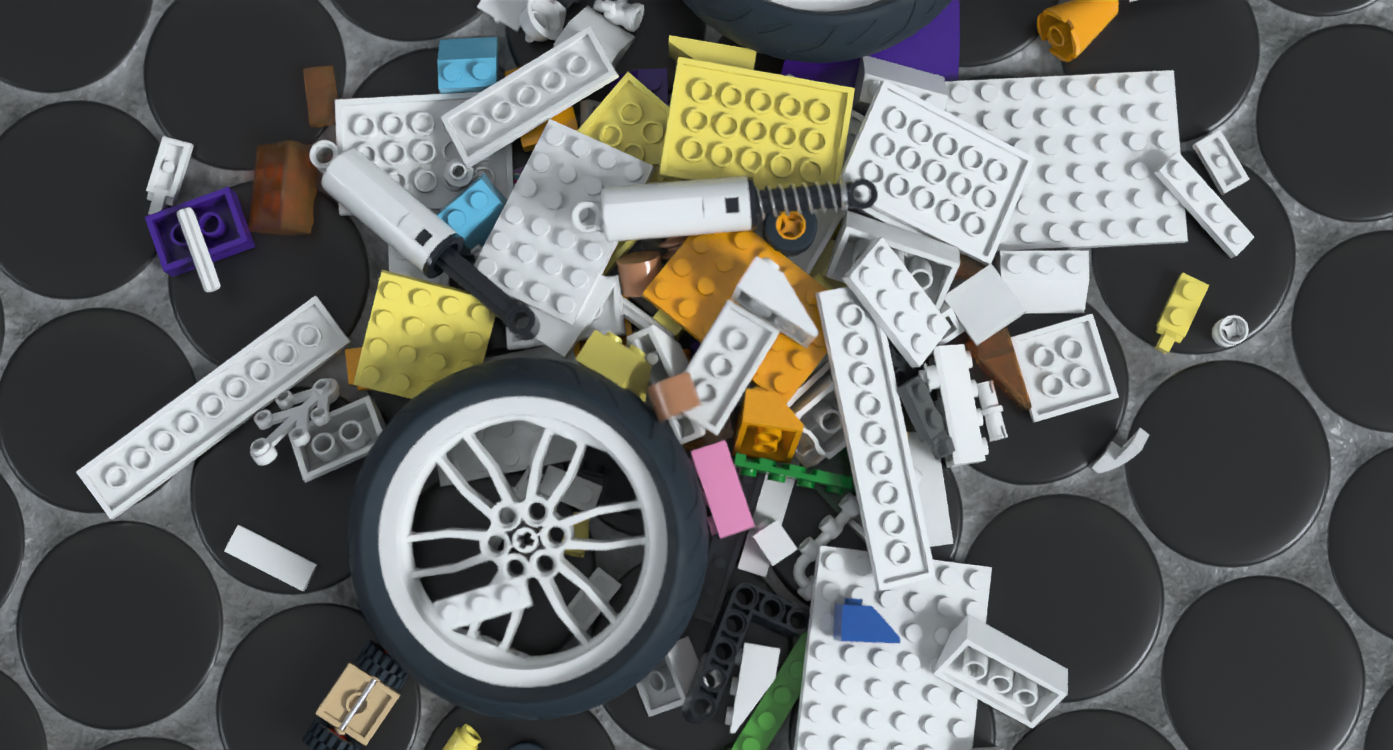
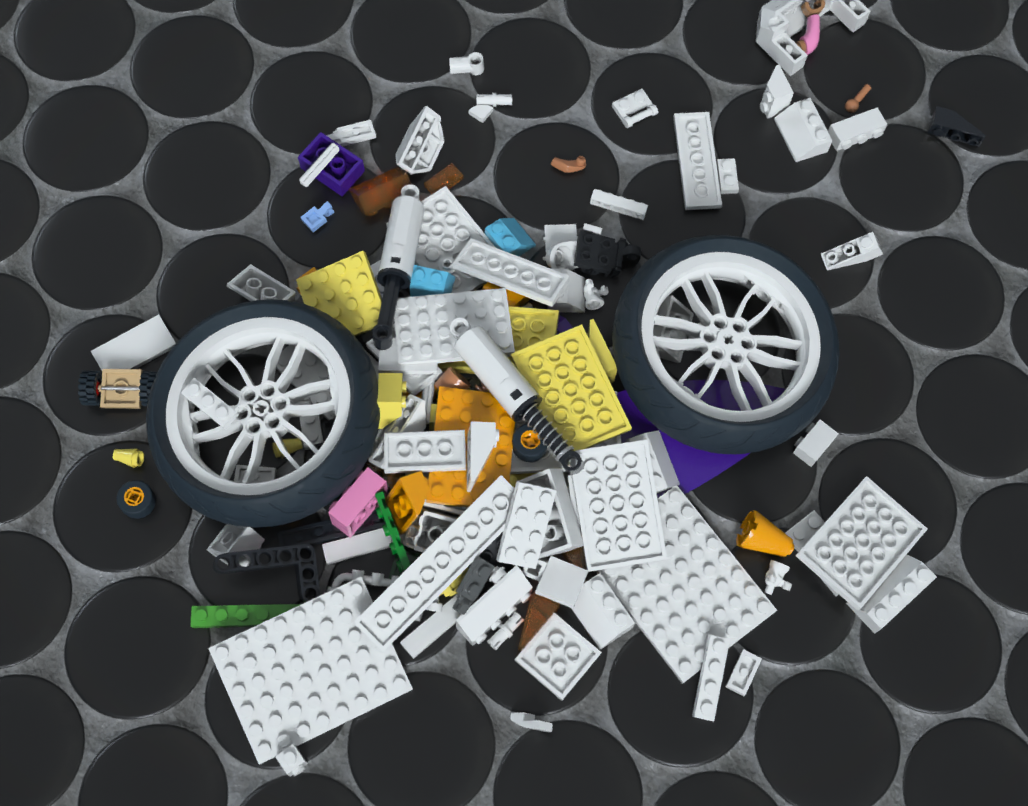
camera: 55 degrees right, 15 degrees down
(213, 407) = (243, 226): white plate -> none
(247, 92) = (421, 143): none -> white wedge
(266, 303) = (316, 217): none -> light blue plate
(271, 558) = (178, 301): white tile -> none
(302, 653) = (135, 346): none -> white tile
(322, 394) = (258, 264): white plant -> none
(673, 396) = (388, 430): nougat piece -> none
(756, 674) = (262, 592): white slope -> none
(773, 541) = (348, 552): white brick -> none
(861, 624) = (328, 625): blue slope -> none
(1001, 672) = (352, 732): white slope -> none
(1132, 43) = (775, 576): none -> white piece
(1179, 311) = (639, 705): light yellow hinge -> none
(1235, 329) = (648, 739): white wheel -> none

